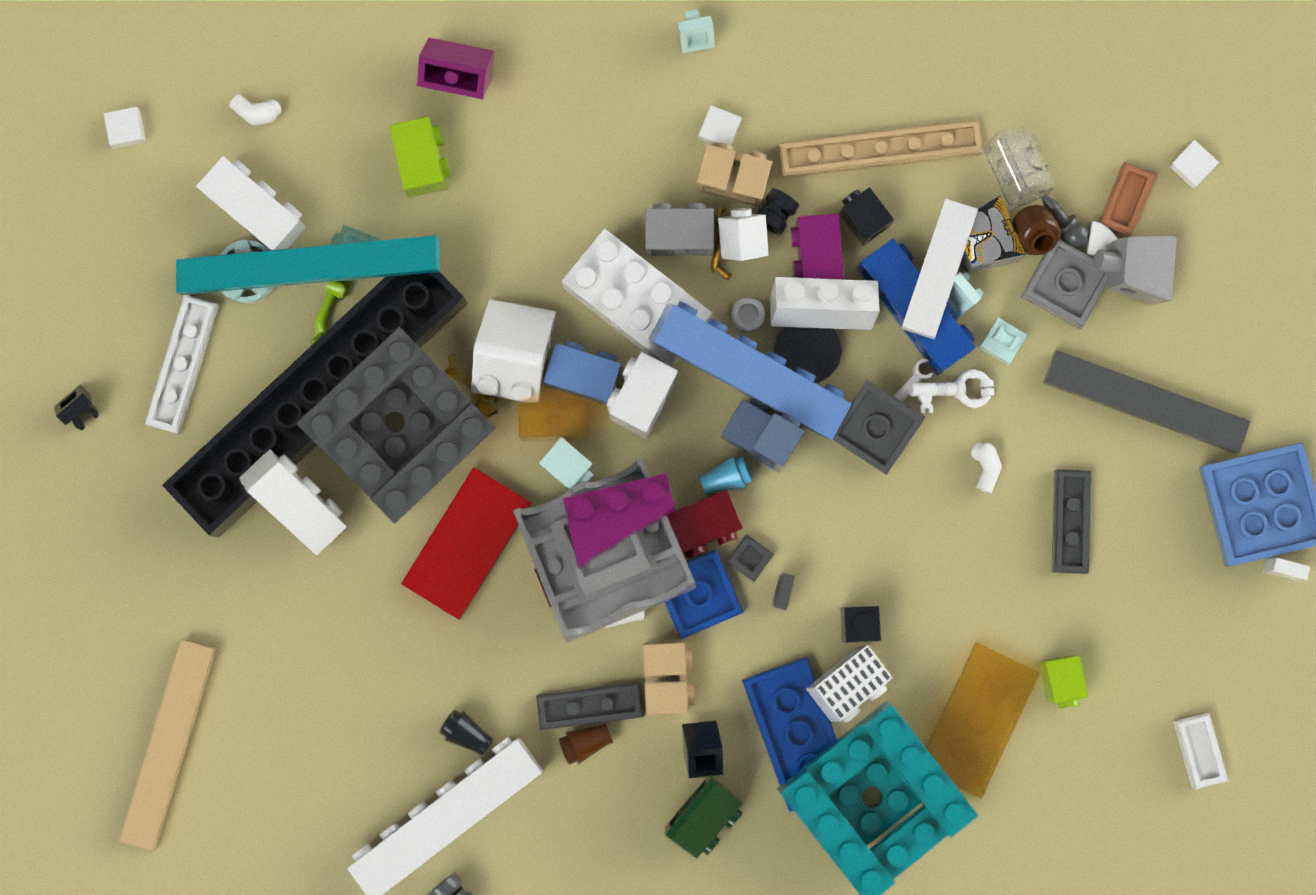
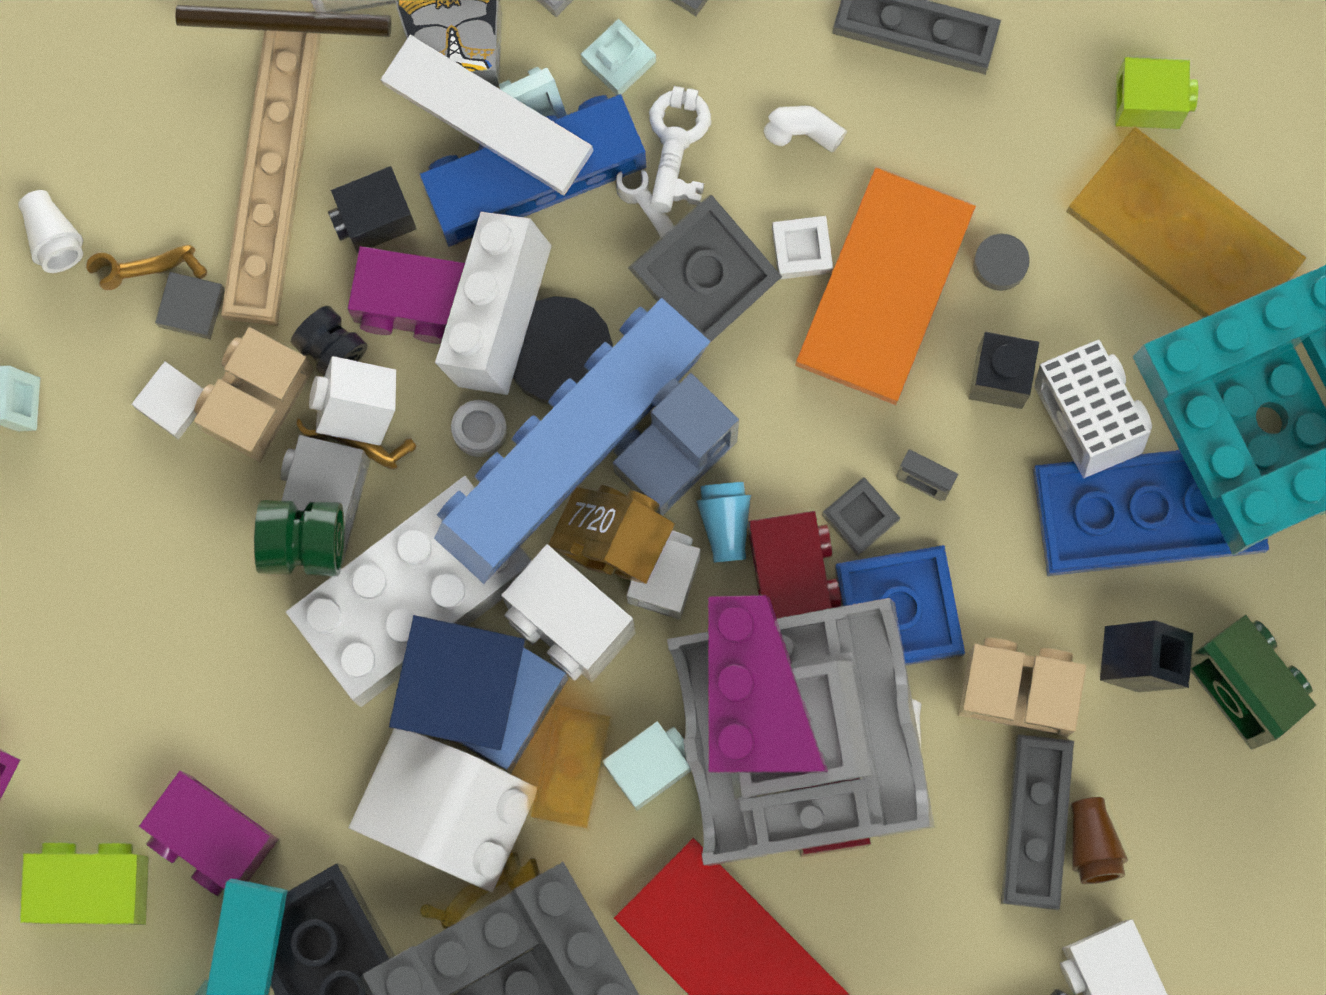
camera: 75 degrees left, 5 degrees down
(466, 218) = (206, 833): none -> magenta brick
(585, 339) = (457, 682): none -> dark blue tile
(648, 224) = (299, 538): none -> dark green wheel
(684, 447) = (670, 579): none -> white brick
(699, 409) = (612, 532): none -> pearl gold brick
(780, 123) = (190, 305): none -> dark grey tile
(798, 90) = (145, 266): none -> pearl gold piece
(801, 29) = (49, 233): none -> white cone
(898, 540) = (885, 286): none -> orange tile
(909, 483) = (802, 247): none -> white tile
(931, 608) = (1001, 262): none -> dark grey tile
(972, 131) = (283, 20): none -> dark brown bar

